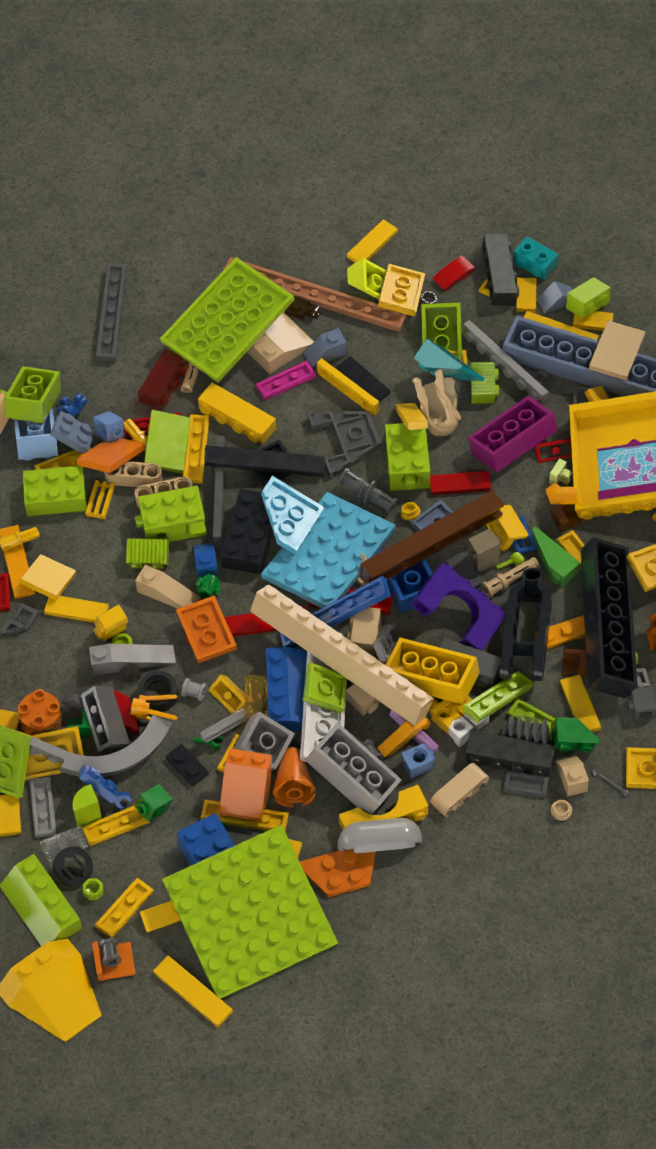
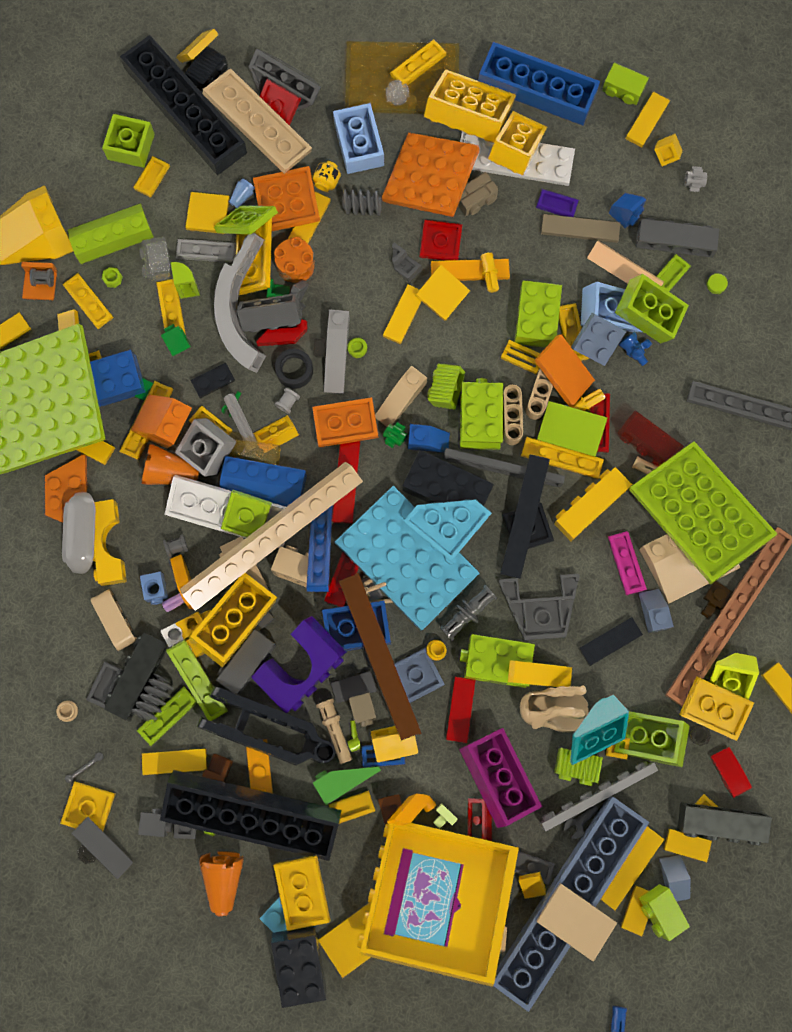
camera: 100 degrees right, 20 degrees up
(71, 852) = (141, 263): black piece -> none
(104, 787) = (201, 297): blue plate -> none
(108, 426) = (600, 376): medium blue brick -> none
(110, 623) = (371, 335): yellow brick -> none
(141, 707) = (274, 346): light orange plant -> none
(347, 387) = (602, 622): yellow tile -> none
(353, 769) = (148, 519): light grey brick -> none
(385, 642) = (277, 582): dark grey tile -> none
(535, 258) = (733, 870): teal brick -> none
(572, 734) = (135, 739): green slope -> none
(572, 774) = (100, 731): tan slope -> none

